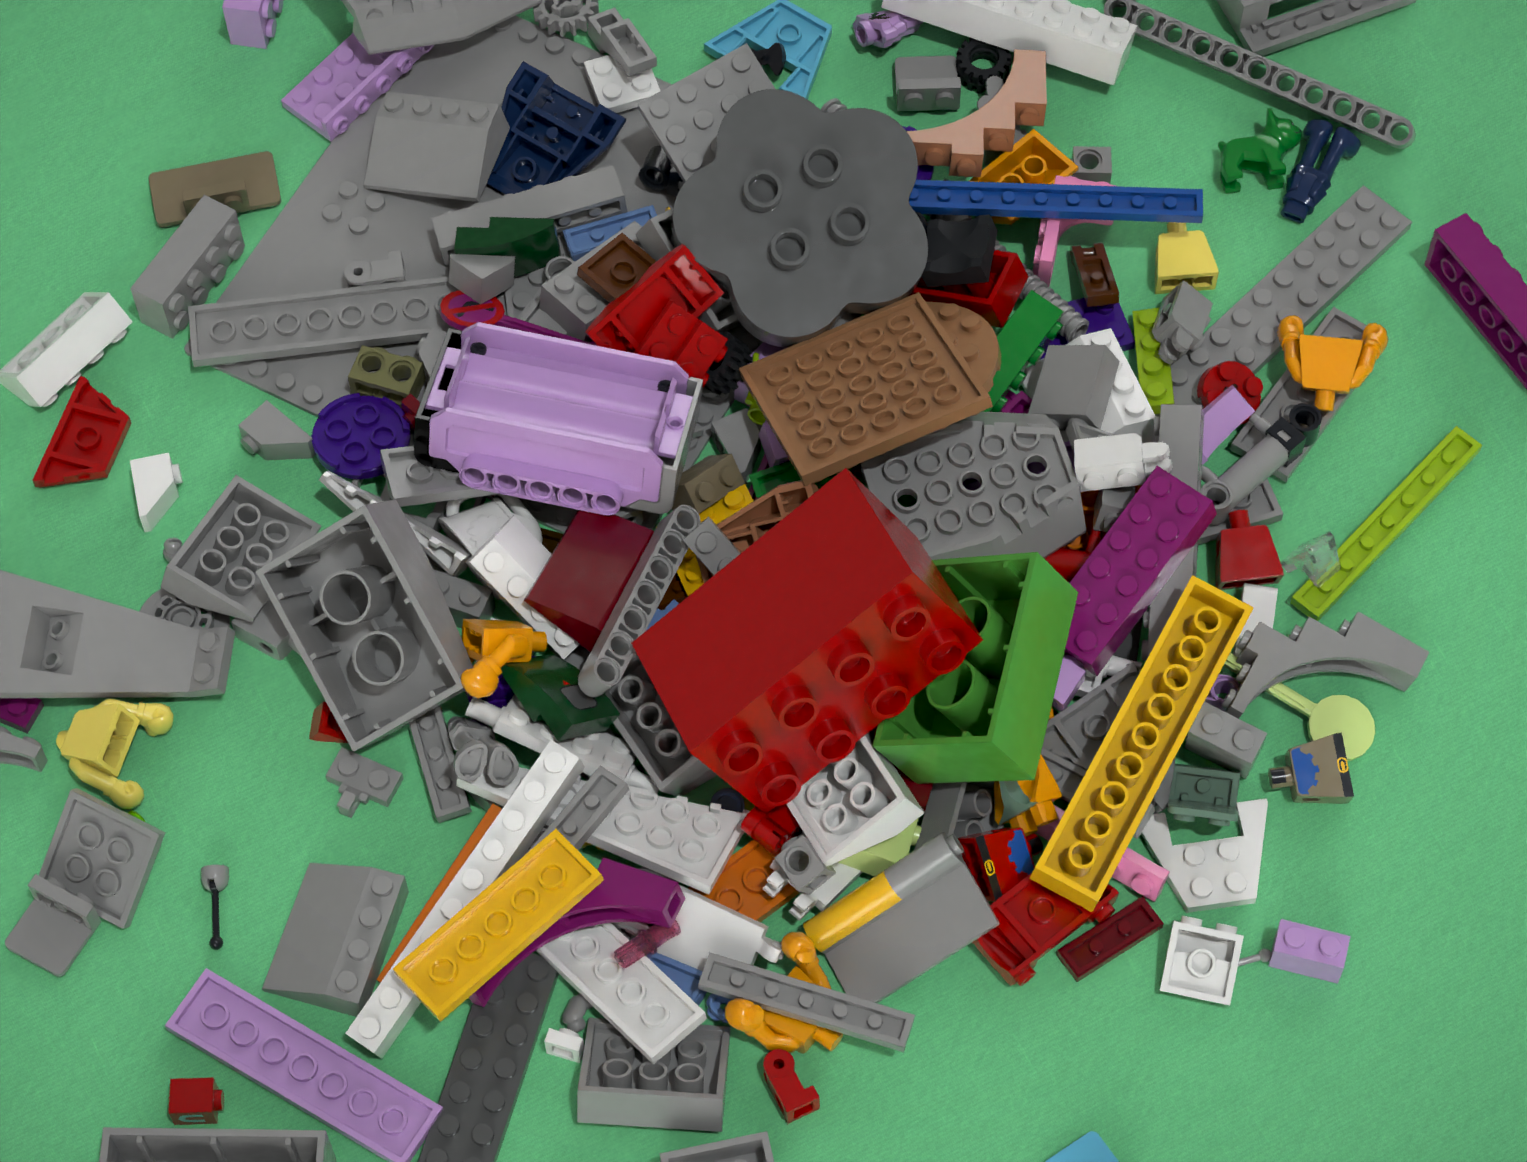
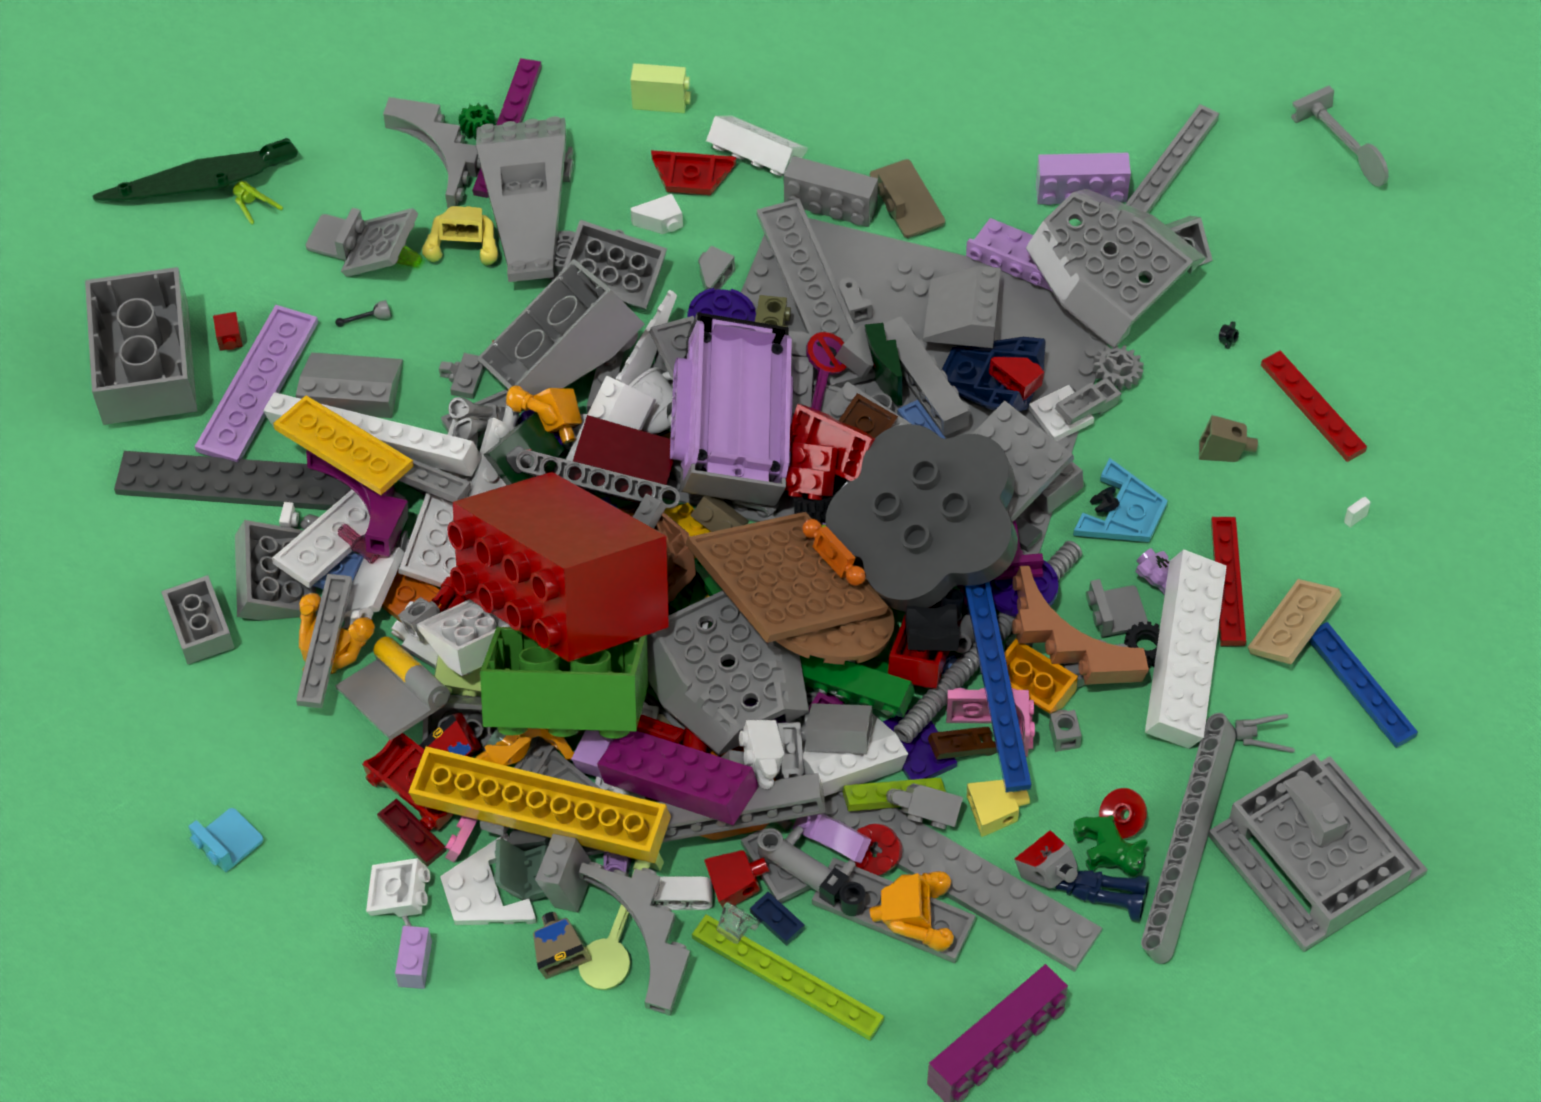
camera: 80 degrees right, 5 degrees down
(570, 103) = (1017, 374): none -> red slope
(786, 1087) = (274, 649): red leg -> none
(832, 331) = (834, 552): none -> orange plate
(1222, 115) = (1119, 802): none -> red dish
(1277, 214) = (1047, 862): none -> light grey torso
(1304, 521) = (777, 918): none -> dark blue plate

